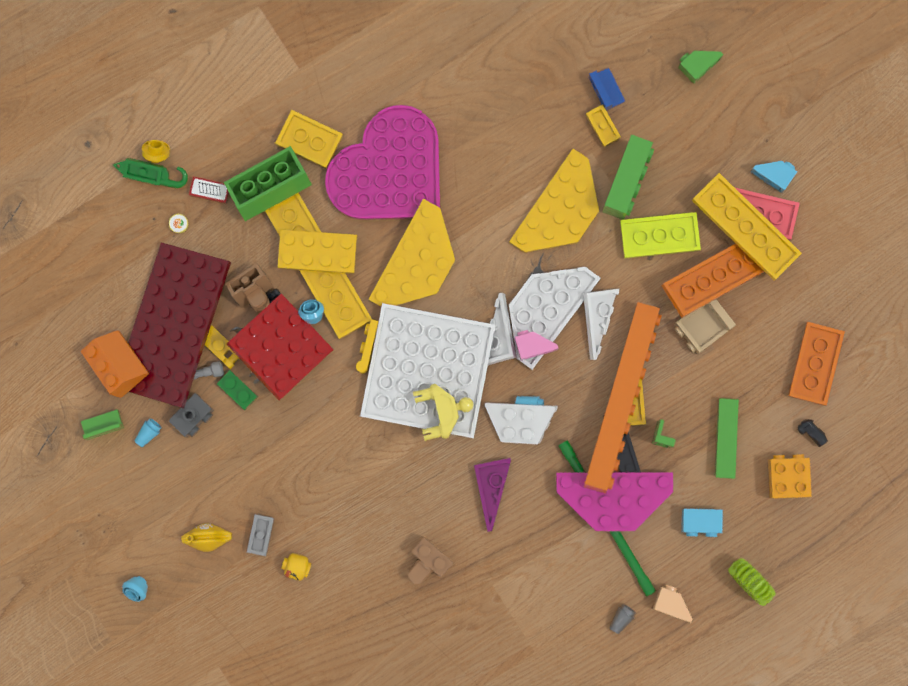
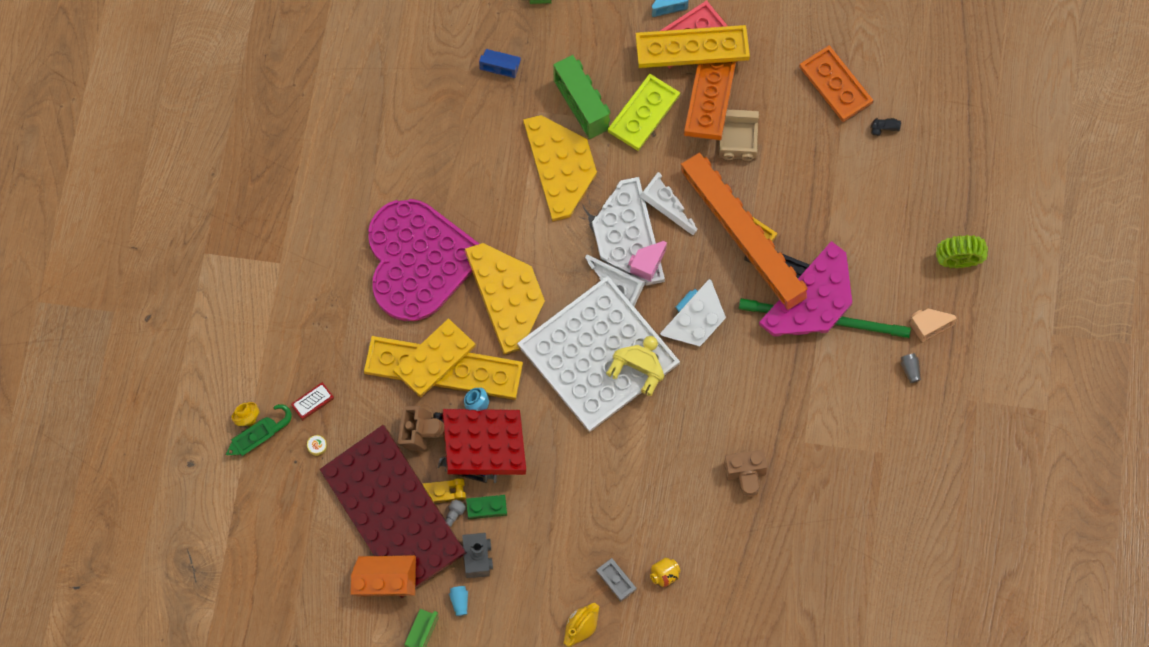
camera: 55 degrees left, 15 degrees down
(267, 183) = (349, 350): bright green brick -> none
(309, 139) = (341, 297): yellow plate -> none
(367, 347) = (540, 382): yellow plate -> none
(491, 482) = (723, 377): magenta wing -> none
(603, 125) = (525, 85): yellow plate -> none
(661, 440) = (797, 229): bright green panel -> none
(702, 521) = (885, 253): medium azure brick -> none
(726, 438) = (836, 185): bright green slope -> none
(789, 477) = (905, 166): light orange brick -> none

